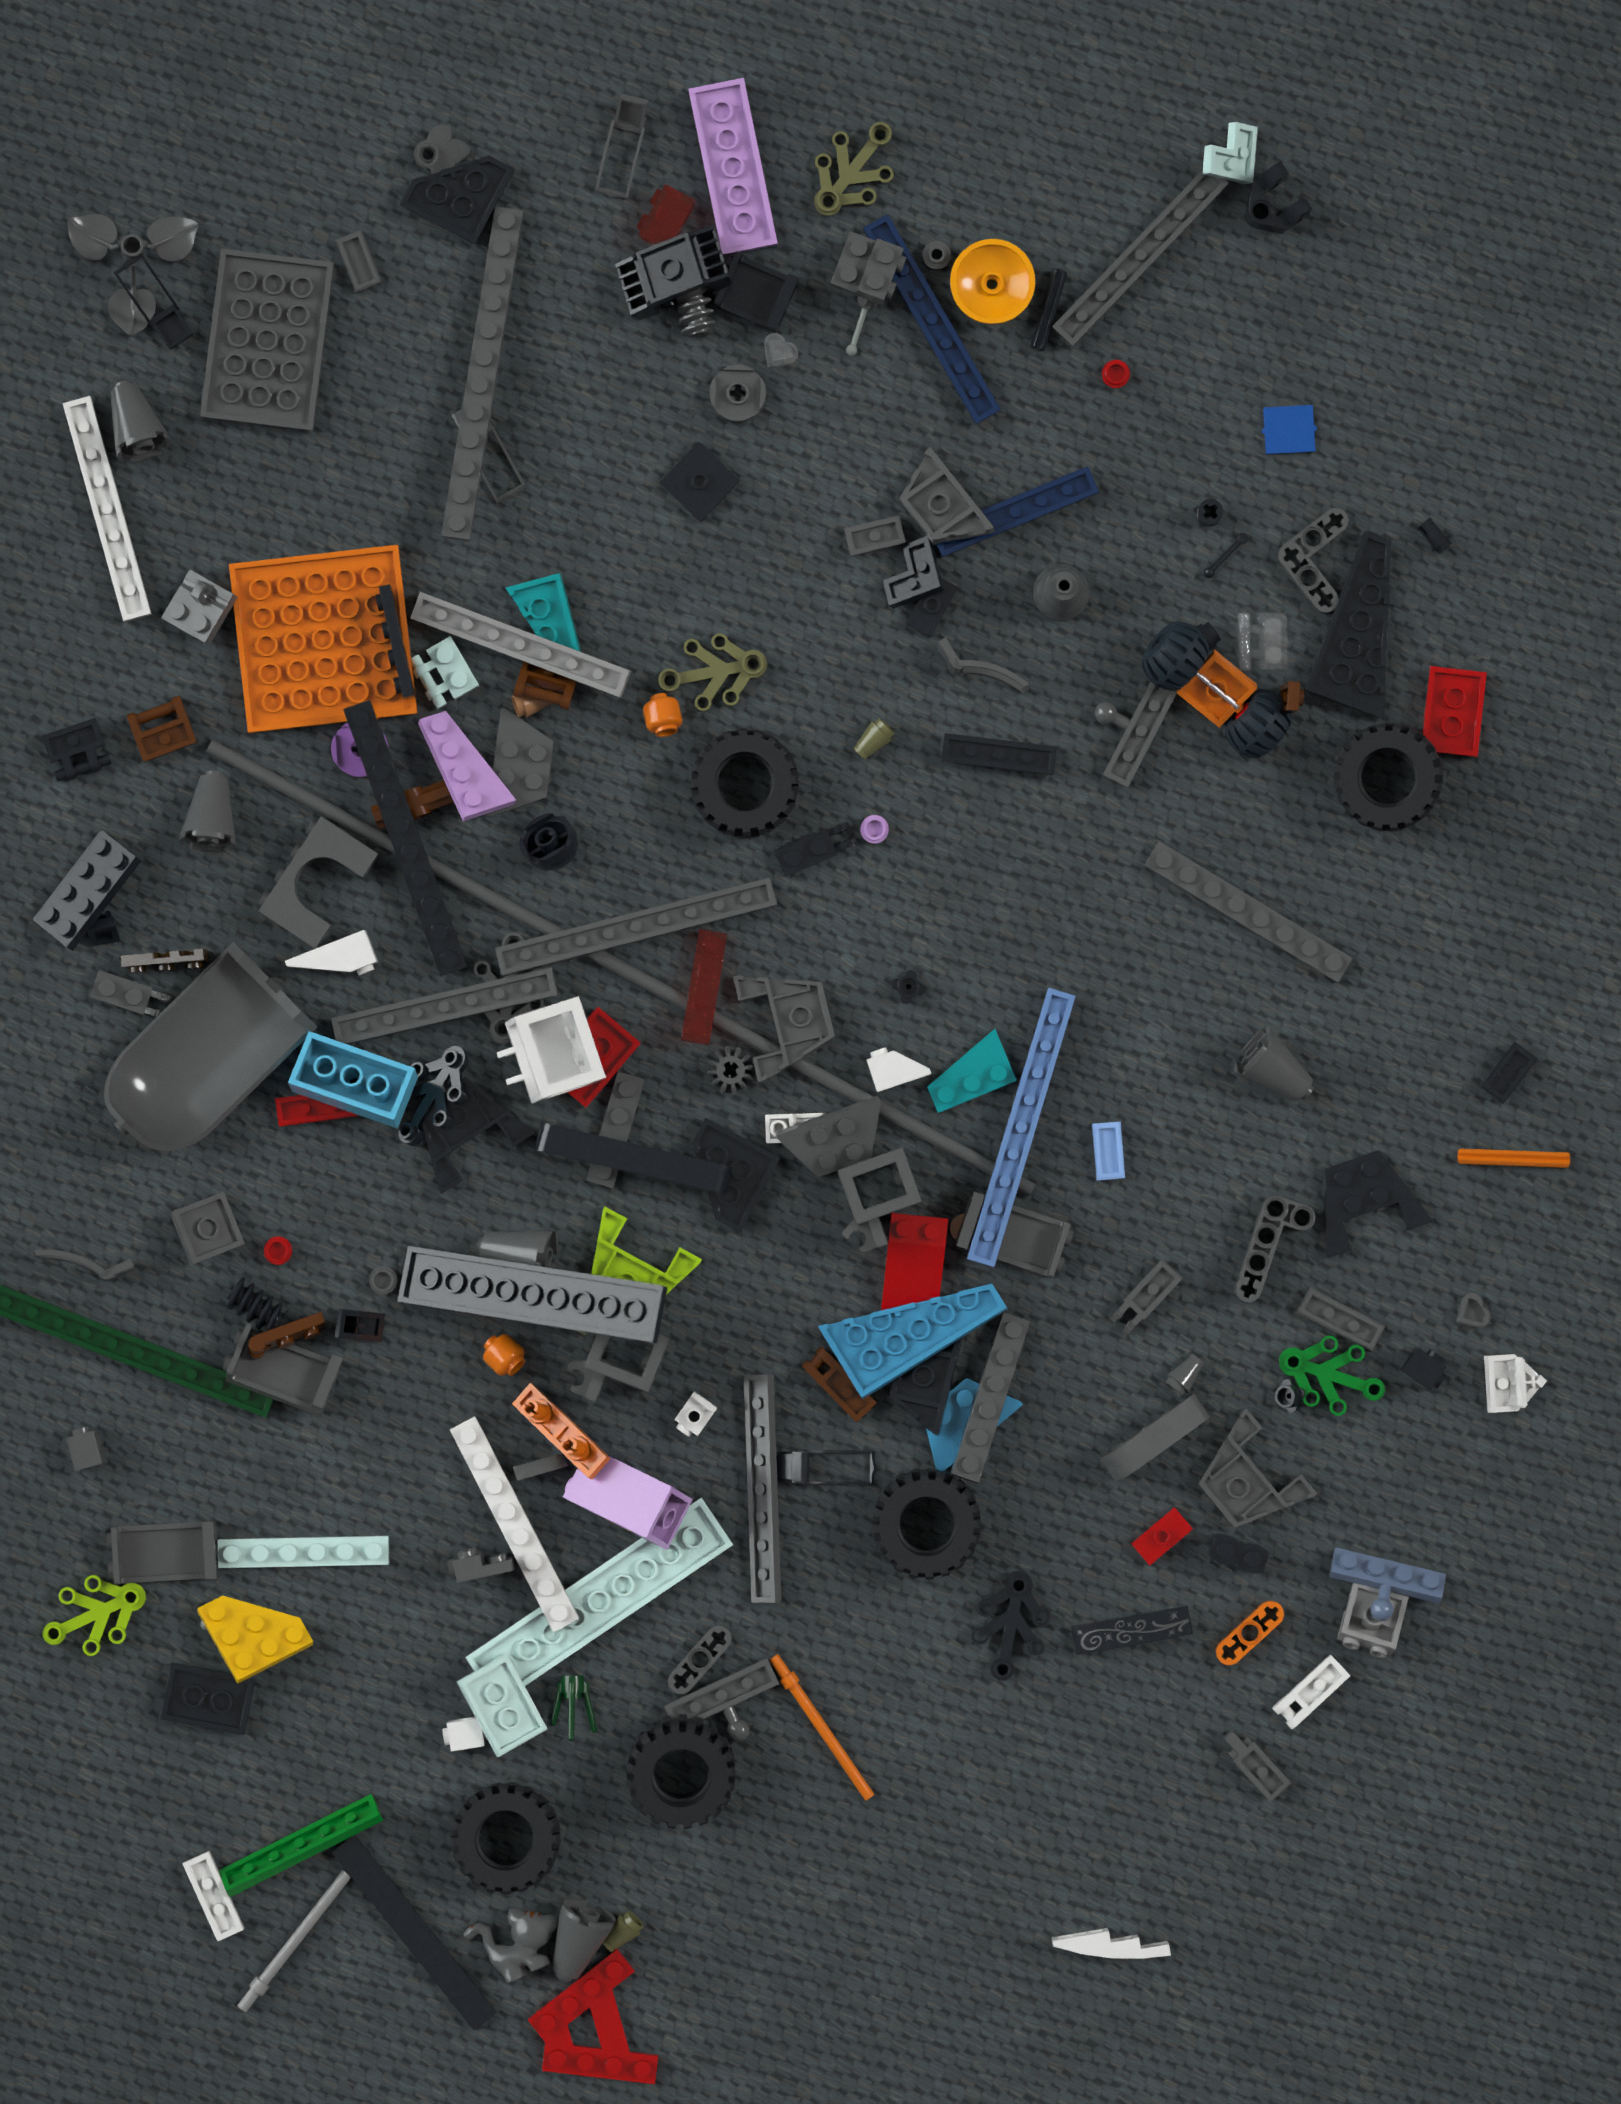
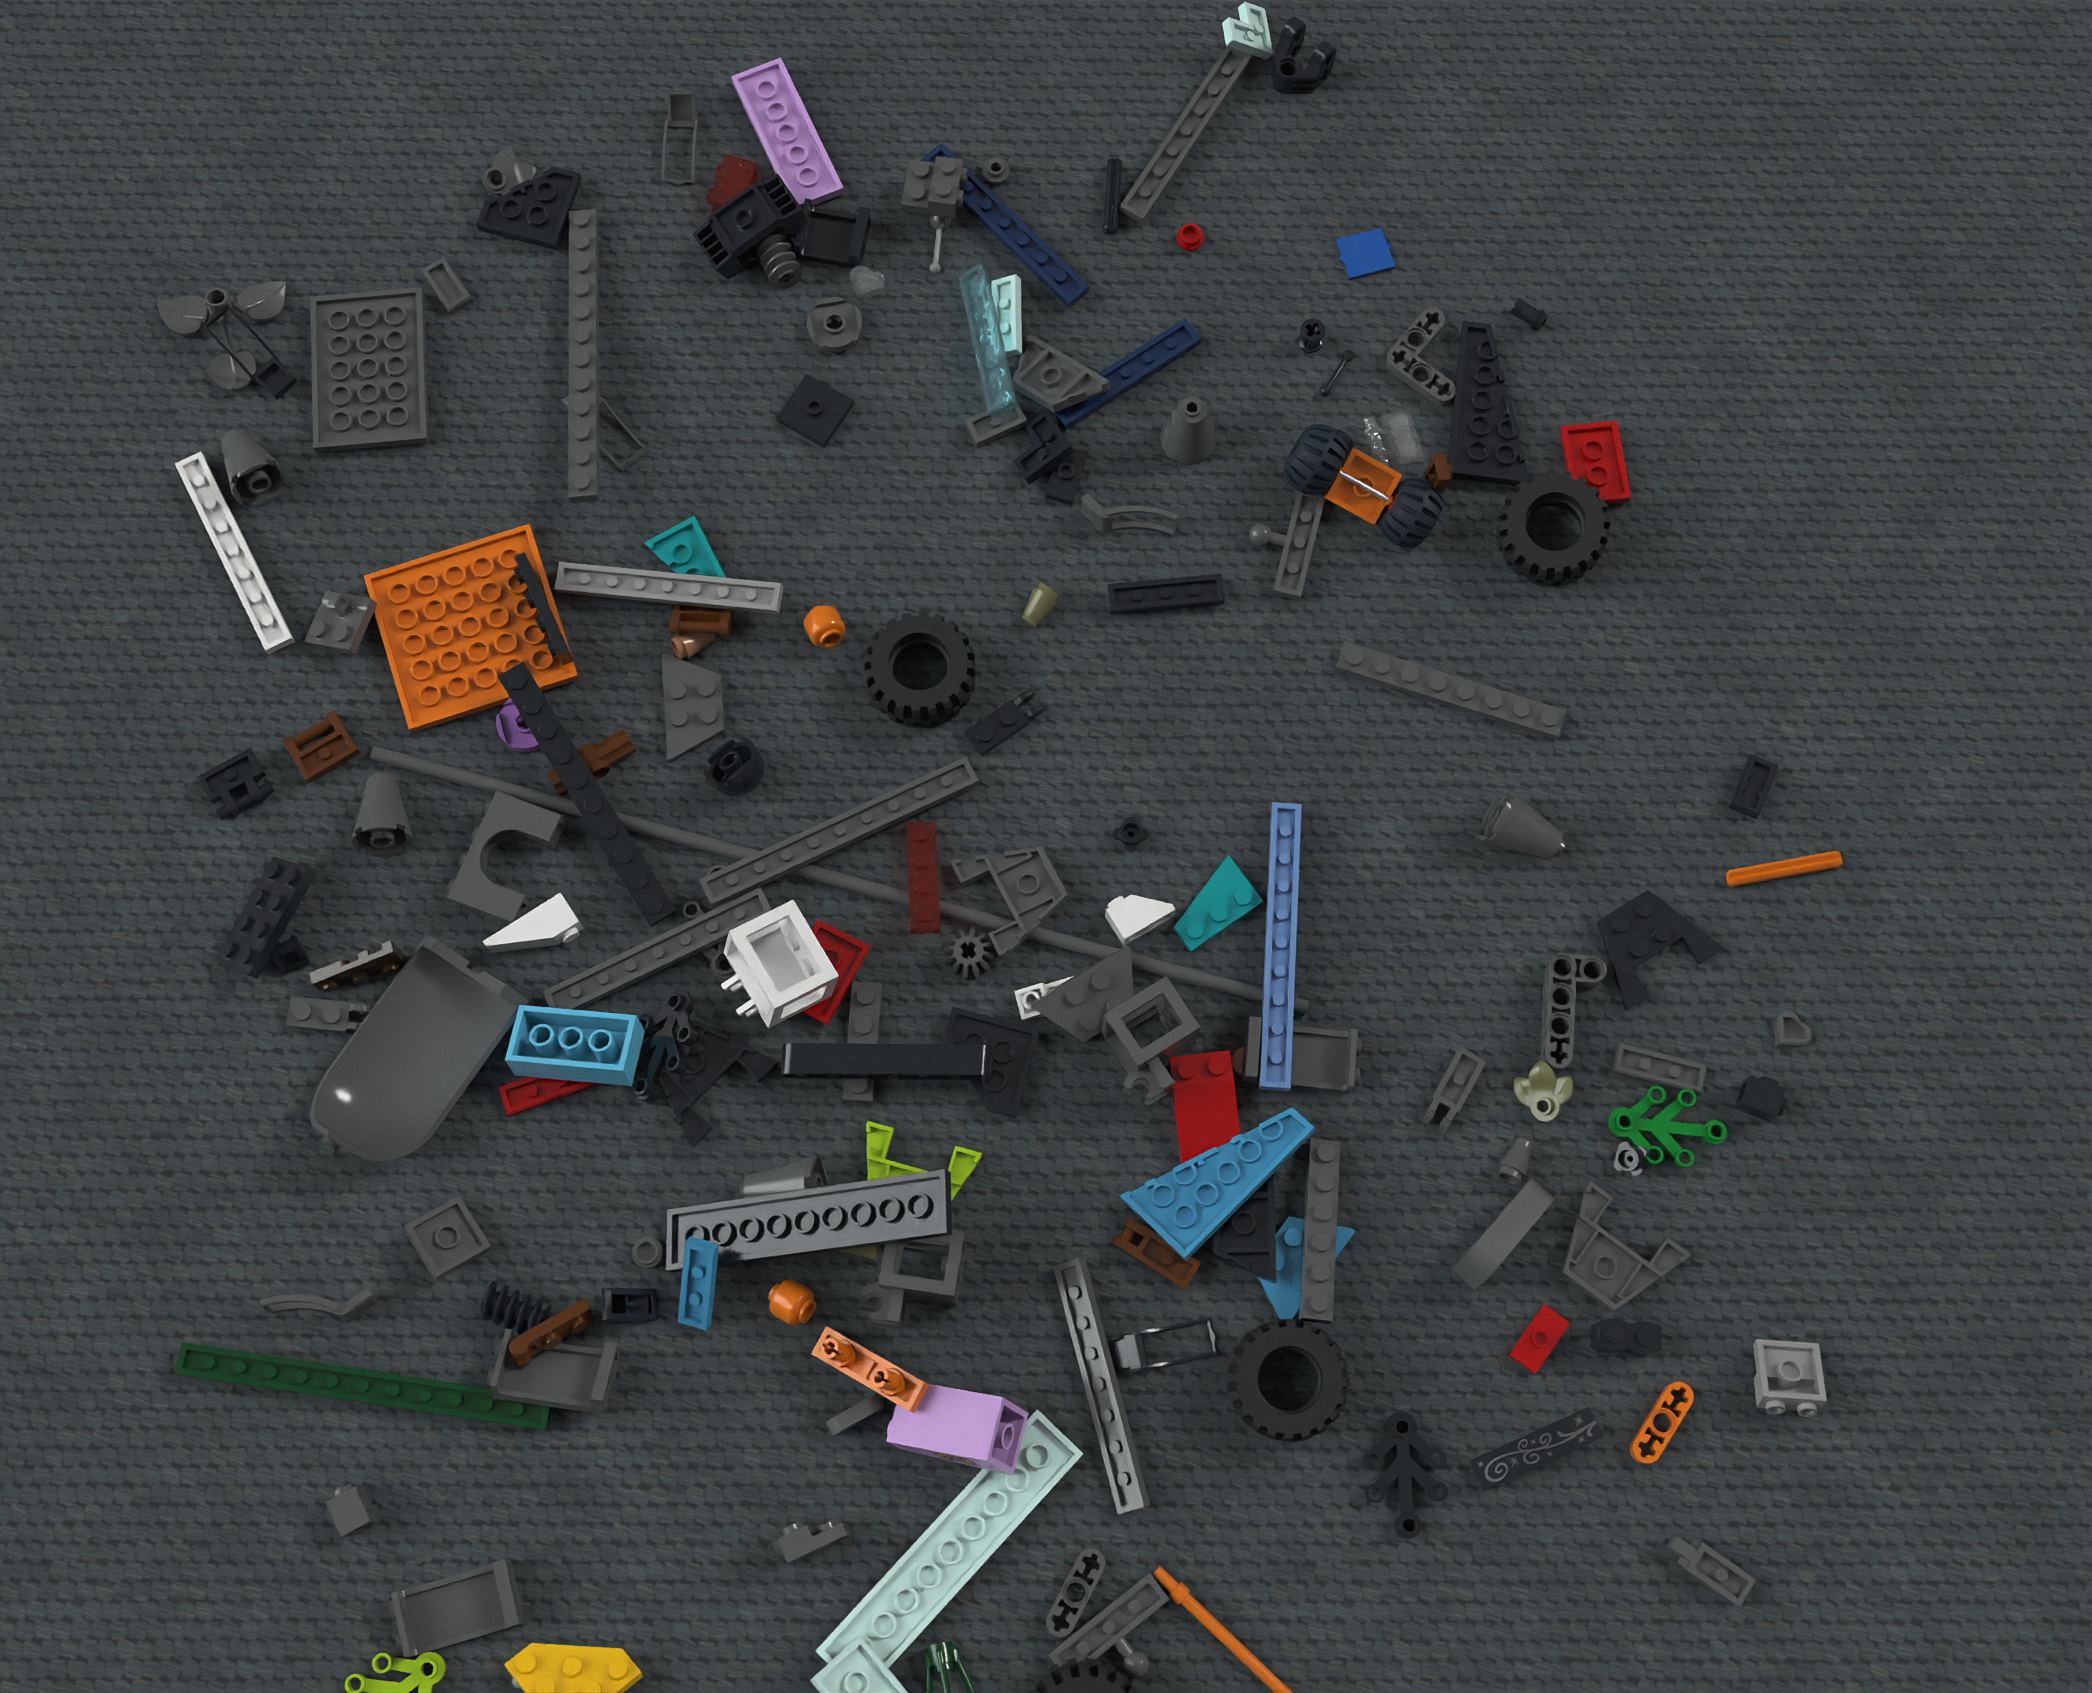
camera: 10 degrees left, 15 degrees down
(278, 1250) = (529, 1246): red plate -> none
(303, 1551) = (612, 1572): light aqua plate -> none
(424, 1322) = (698, 1283): none -> dark azure plate
(452, 668) = (605, 628): light aqua plate -> none
(466, 773) = (634, 717): lavender wing -> none
(514, 1524) = (841, 1487): white plate -> none
(703, 1407) = (1015, 1308): white brick -> none
(717, 671) = (869, 576): olive plant -> none
(850, 173) = (900, 119): olive plant -> none
(874, 829) = (1060, 690): lavender plate -> none
(885, 448) = (987, 341): none -> clear light blue plate
(910, 424) = (1007, 302): none -> light aqua plate
(992, 261) = (1054, 163): light orange dish -> none
(1108, 1150) = (1374, 951): light blue tile -> none
(1227, 1314) = (1543, 1086): none -> olive plate
(1312, 1691) = (1747, 1471): white plate -> none
(1387, 1577) = (1790, 1327): sand blue plate -> none
(1509, 1383) = (1851, 1094): white slope -> none

